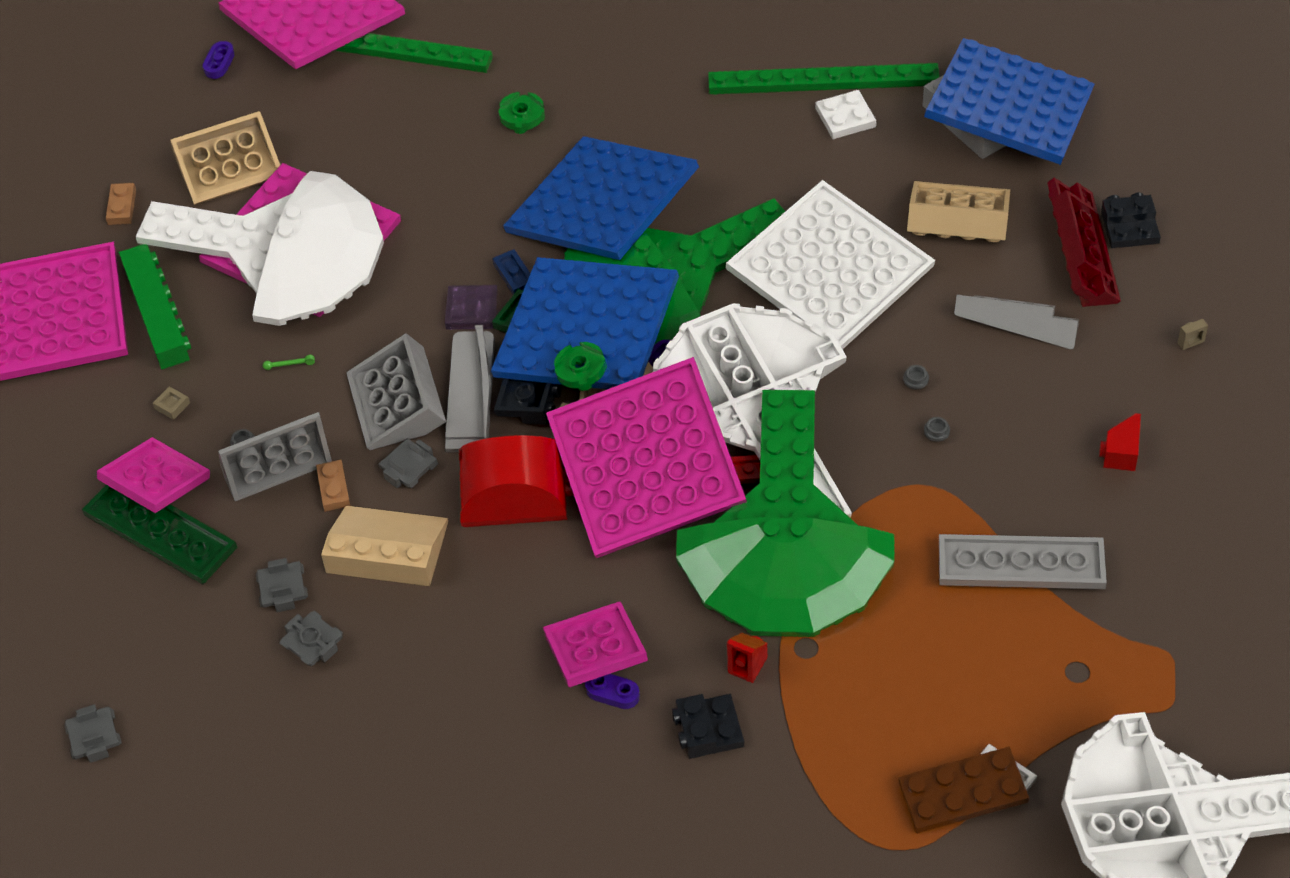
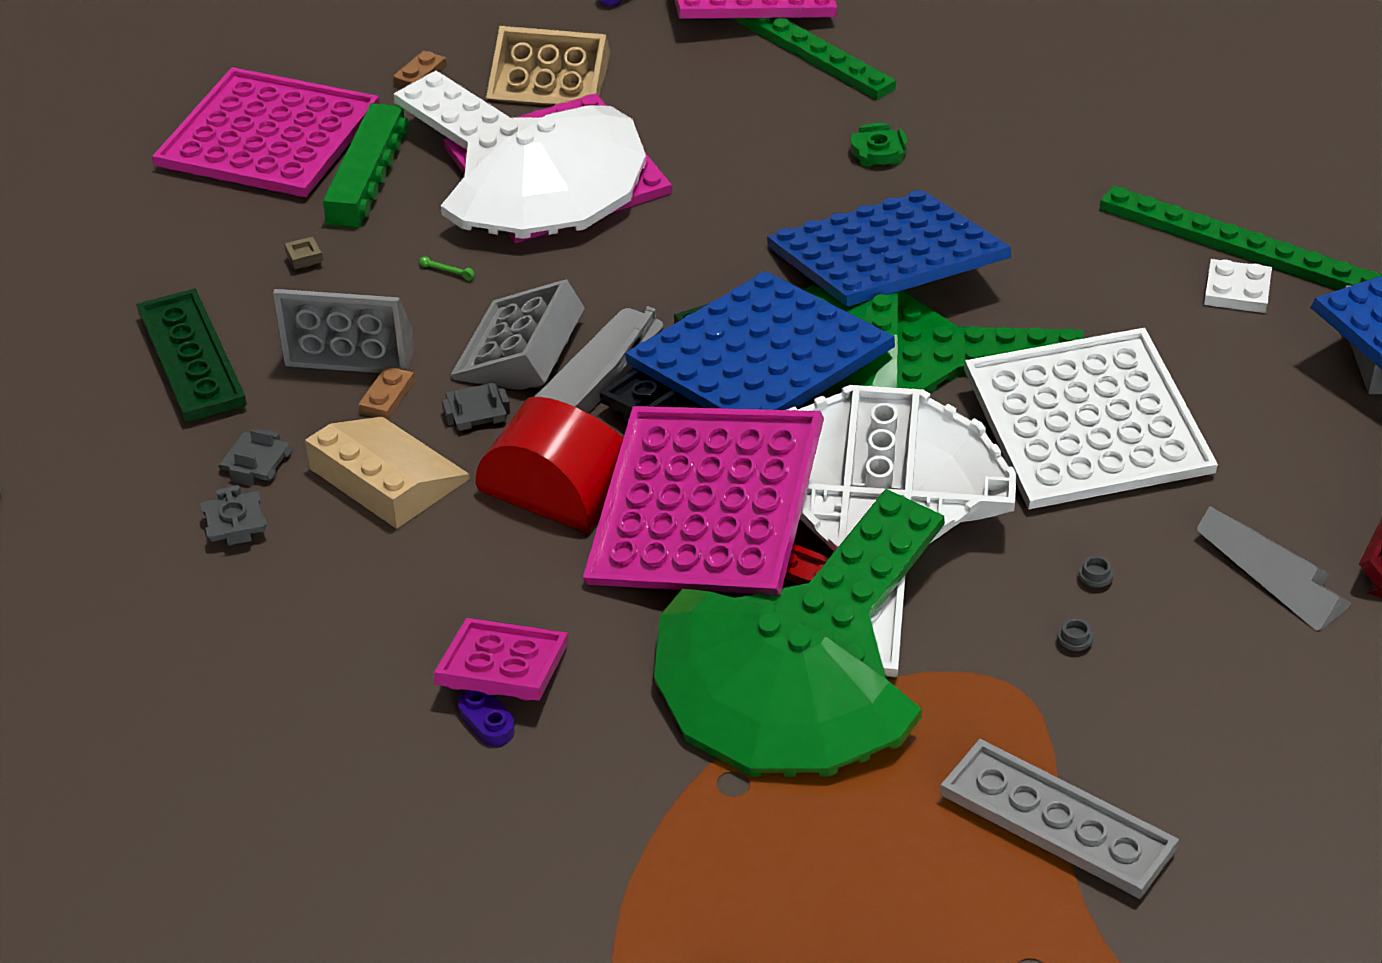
camera: 30 degrees right, 10 degrees down
(153, 474) = (224, 302): dark pink plate -> none
(471, 306) = (669, 294): clear purple plate -> none
(512, 270) = (737, 273): dark blue plate -> none
(584, 376) = (720, 381): green plate -> none
(707, 725) = (552, 801): black plate -> none
(746, 656) = (651, 750): red slope -> none
(958, 211) = (1289, 429): tan slope -> none
(1122, 445) = (1291, 754): red slope -> none

